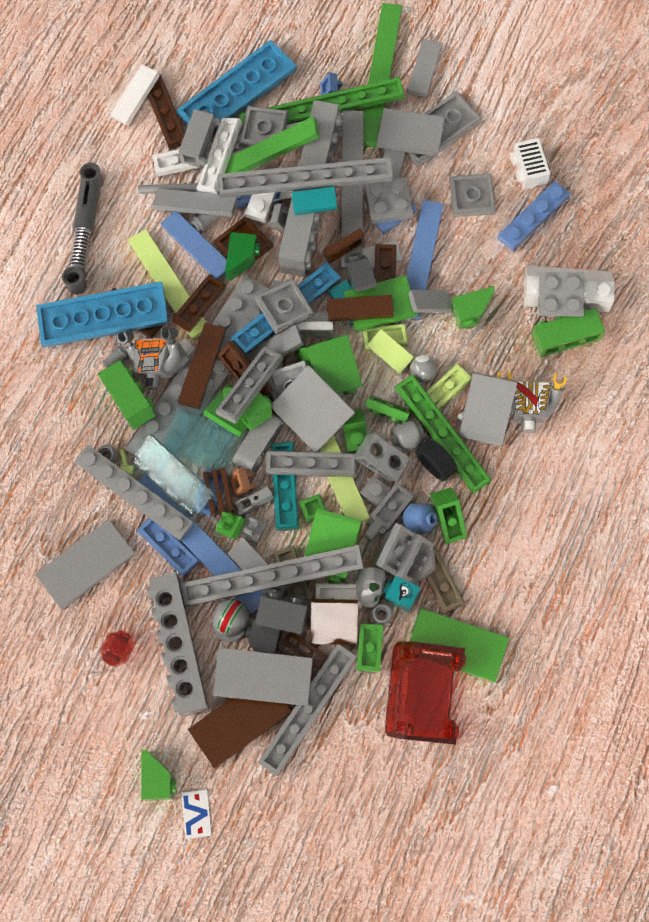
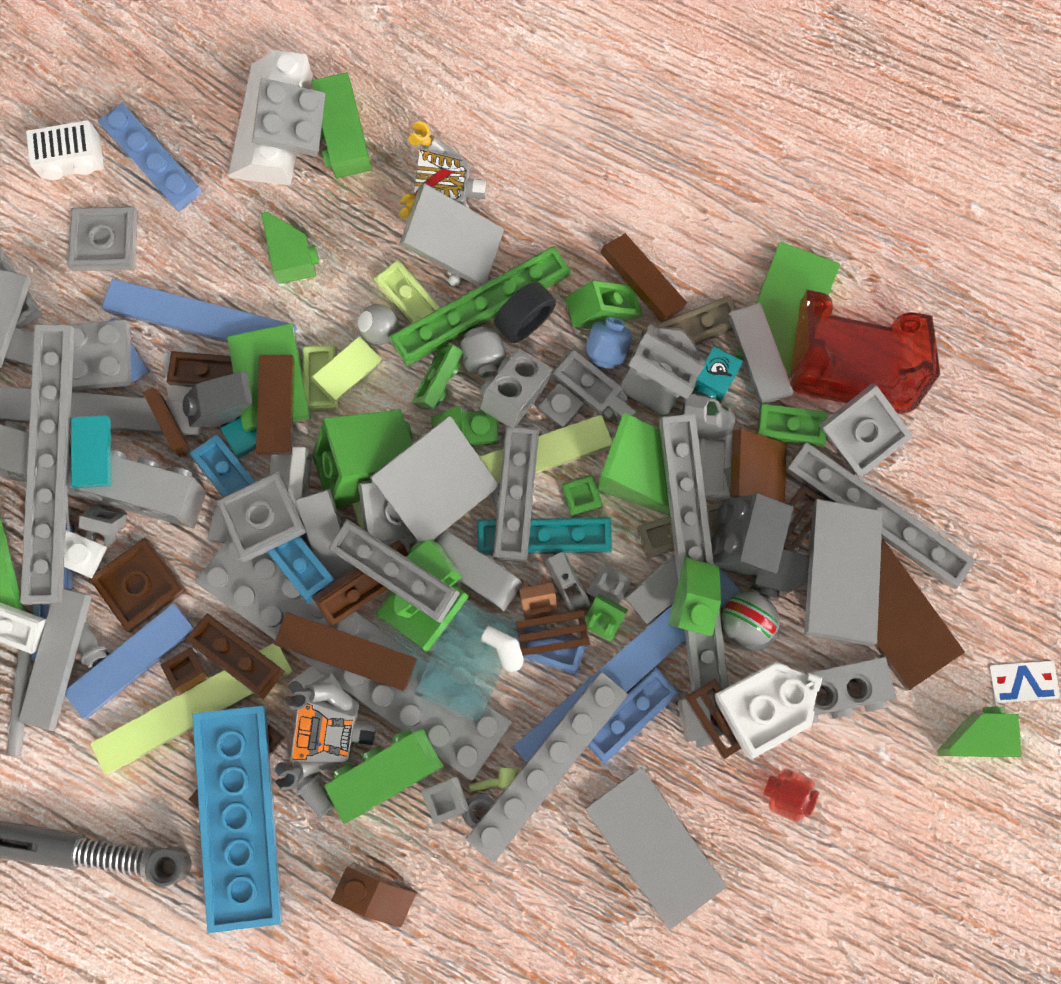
camera: 90 degrees left, 5 degrees up
(57, 395) = (373, 895): none -> reddish brown slope
(112, 433) = (445, 800): none -> light grey tile
(166, 603) = (712, 734): none -> reddish brown tile
(170, 625) = (769, 707): none -> white tile
(171, 471) = (515, 706): clear light blue windscreen -> none
(189, 275) = (184, 671): none -> reddish brown plate
(206, 461) = (506, 646): none -> white arm
(239, 575) = (696, 598): none -> bright green slope
(241, 254) = (158, 582): green slope -> none
(366, 696) = (866, 430): none -> light grey plate
(381, 607) = (750, 401): light grey plate -> none
(420, 622) = (760, 353): none -> light grey tile
(430, 301) = (272, 306): light grey tile -> none
(473, 542) = (643, 277): none -> reddish brown tile

